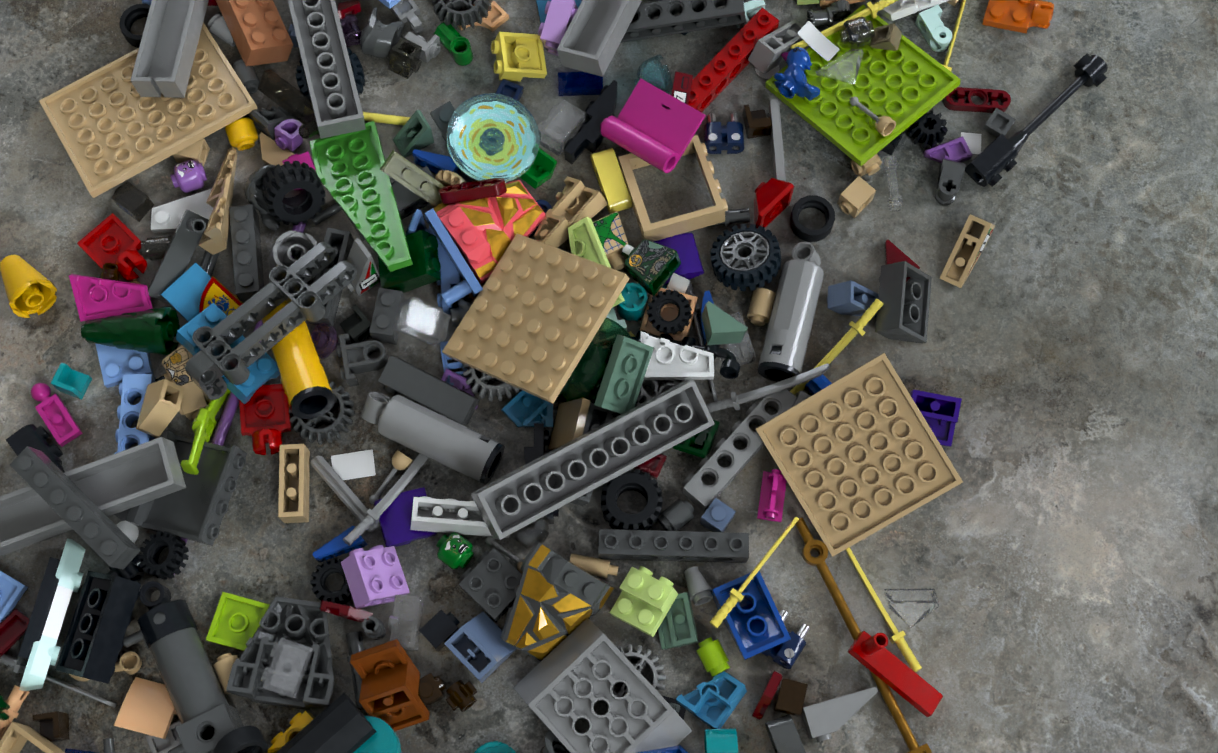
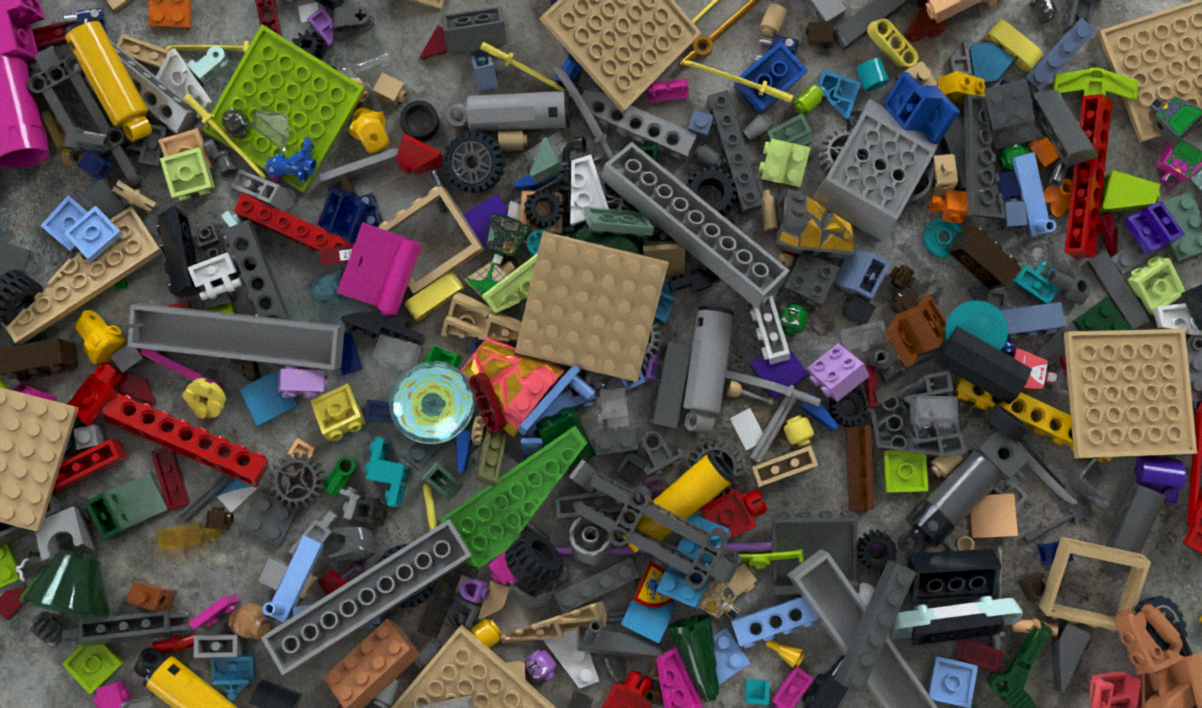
camera: 110 degrees left, 10 degrees up
(93, 430) = (787, 653): none -> yellow cone
(159, 407) = (760, 600): tan slope -> none
(262, 571) = (859, 468): none -> reddish brown fence
(328, 517) = (798, 430): none -> light yellow head
(438, 82) = (387, 472): none -> teal bracket
(727, 108) = (343, 214): none -> clear blue brick
(767, 695) = (821, 52): dark red tile -> none
(815, 164) = (369, 129): none -> yellow head
(818, 41) = (252, 155): white sticker -> none
(825, 646) = (773, 20): none -> tan brick
(883, 124) = (324, 75): tan hinge -> none
(886, 37) = (234, 97): dark tan slope -> none

